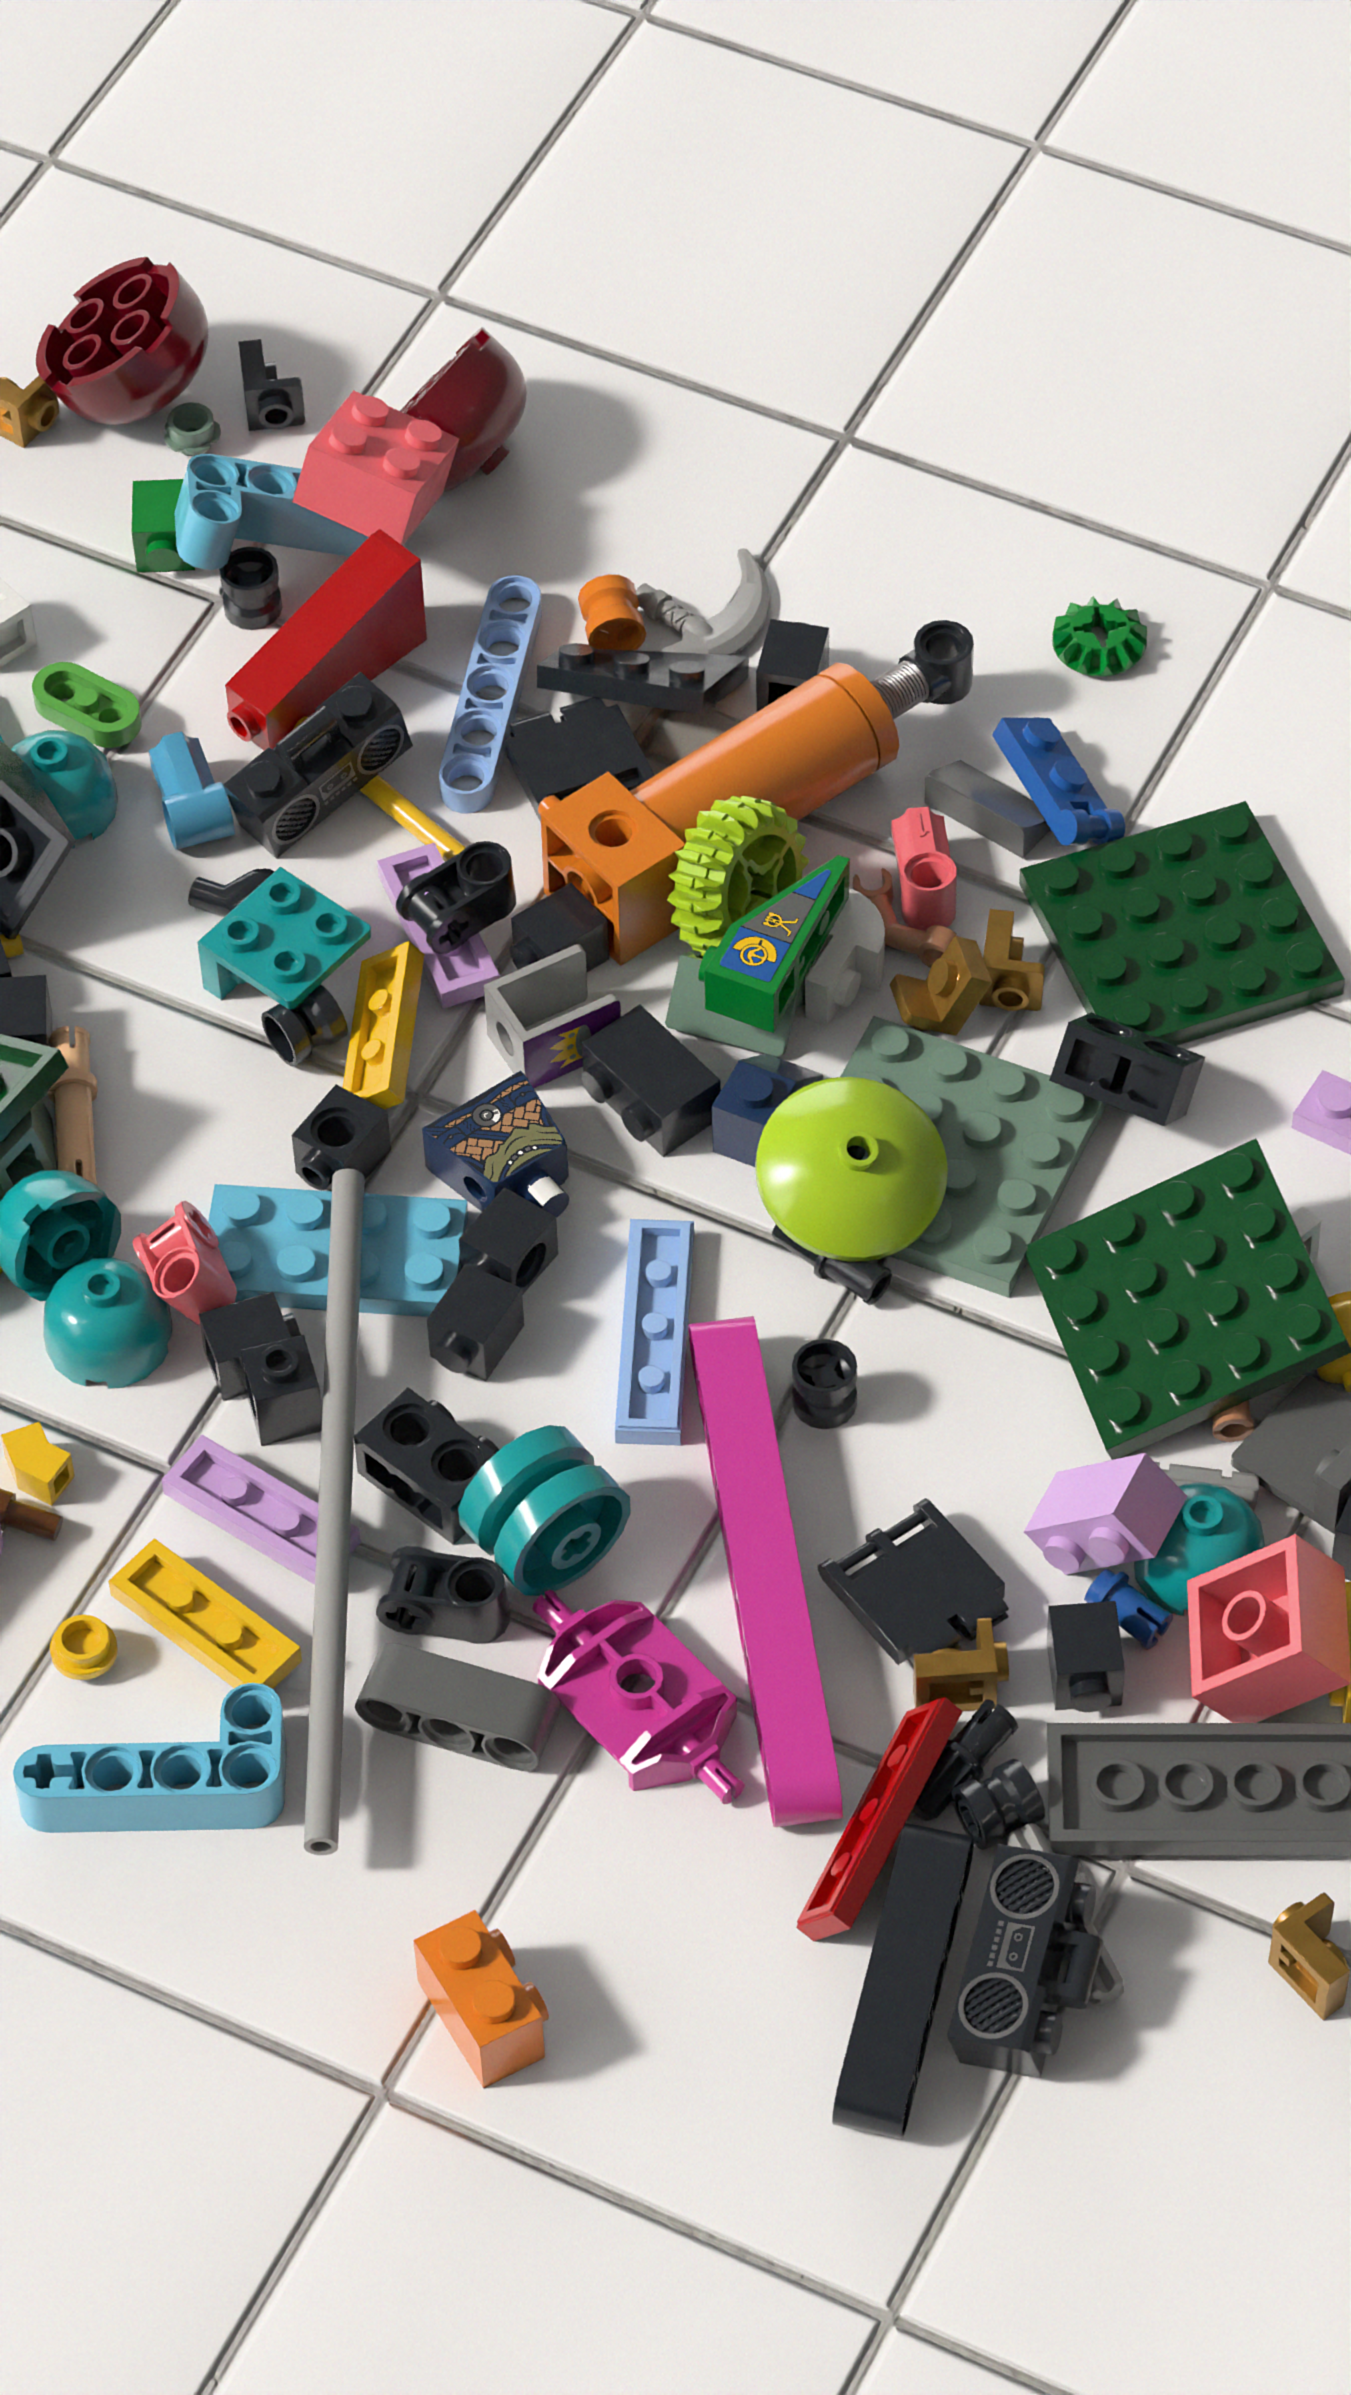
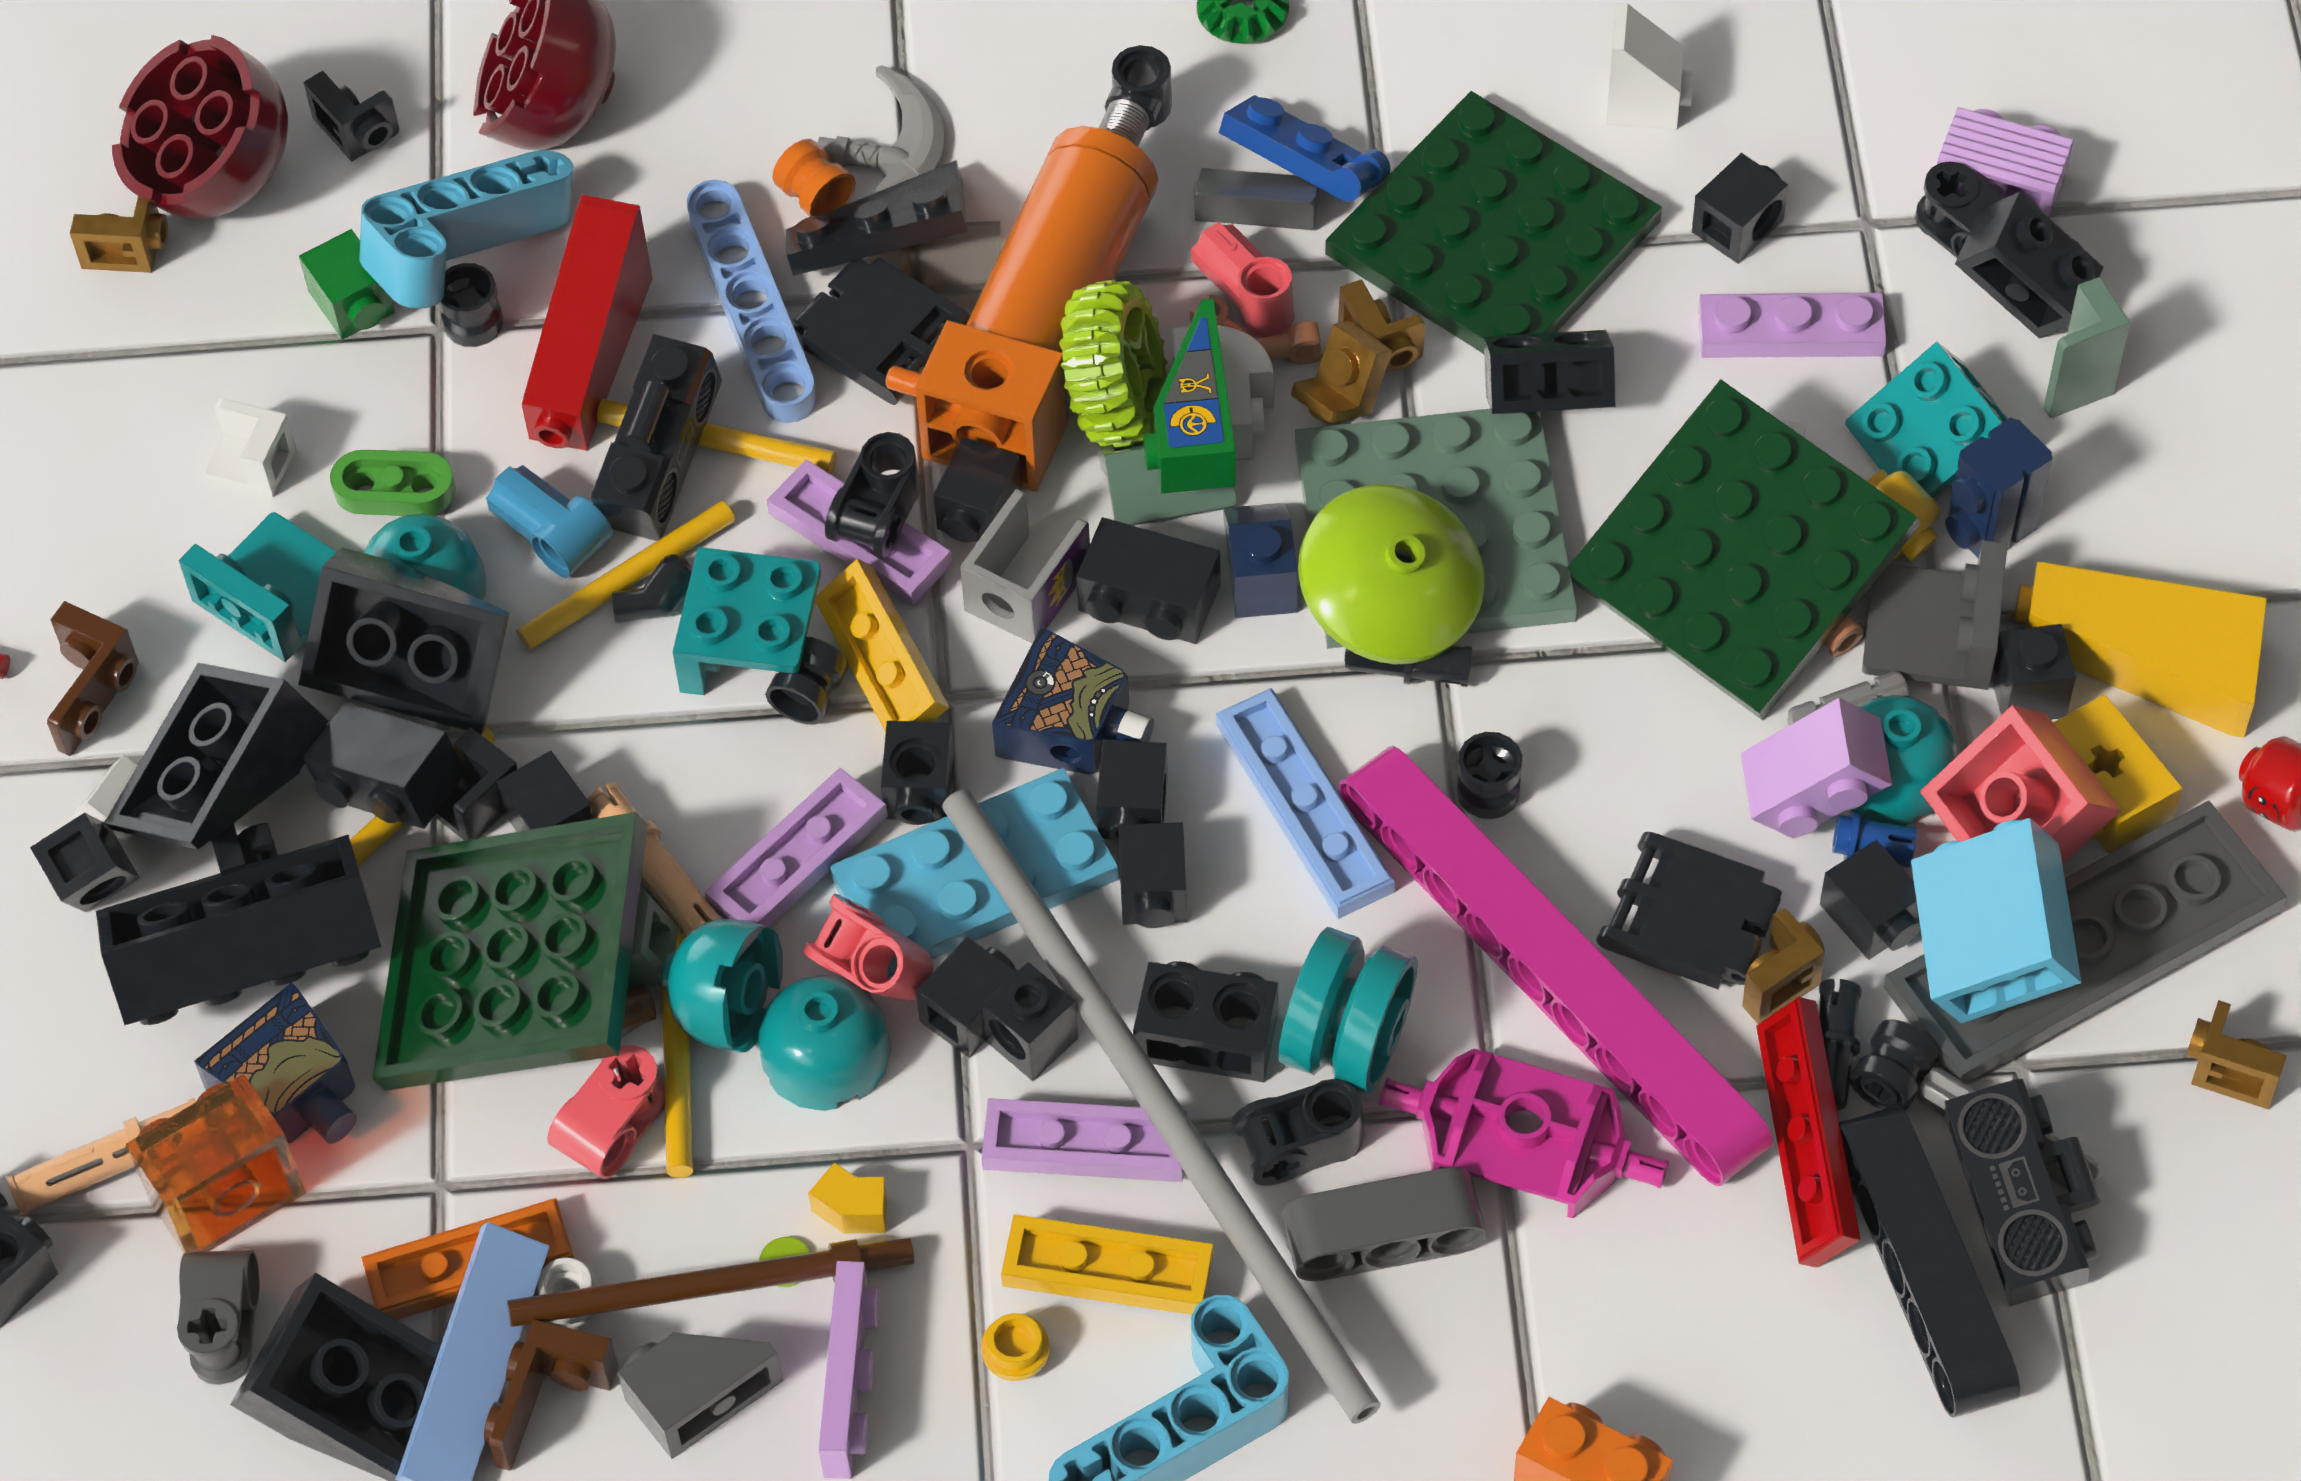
camera: 30 degrees left, 5 degrees up
(191, 429) = (302, 173): sand green plate -> none
(195, 1160) = (797, 851): none -> lavender plate
(221, 869) = (624, 575): none -> yellow bar
(375, 468) = (533, 141): coral brick -> none
(789, 658) = (1005, 152): black brick -> none
(1156, 1715) = (1995, 920): none -> medium azure brick

